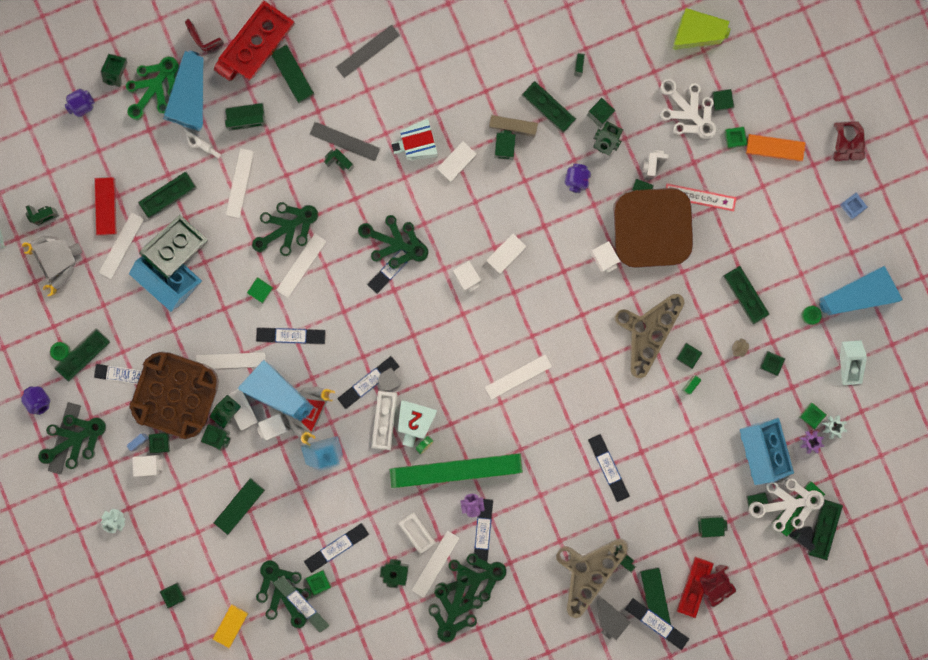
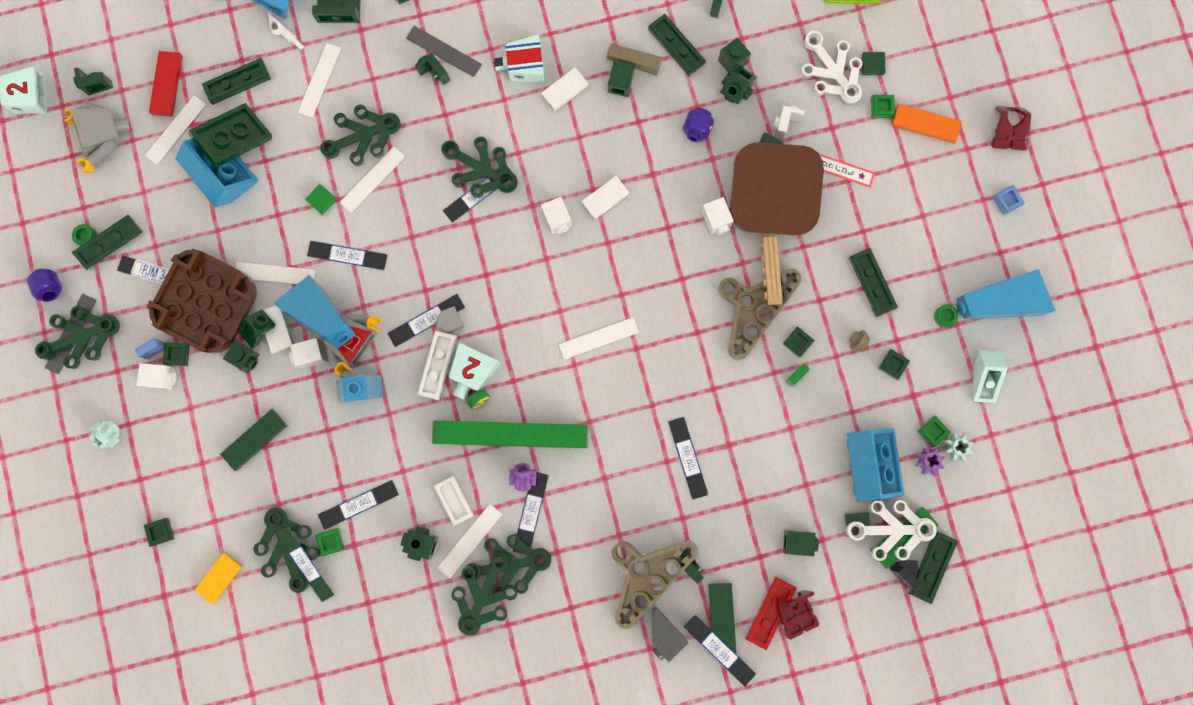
camera: 10 degrees right, 5 degrees down
(658, 299) = (771, 270): none -> tan piece

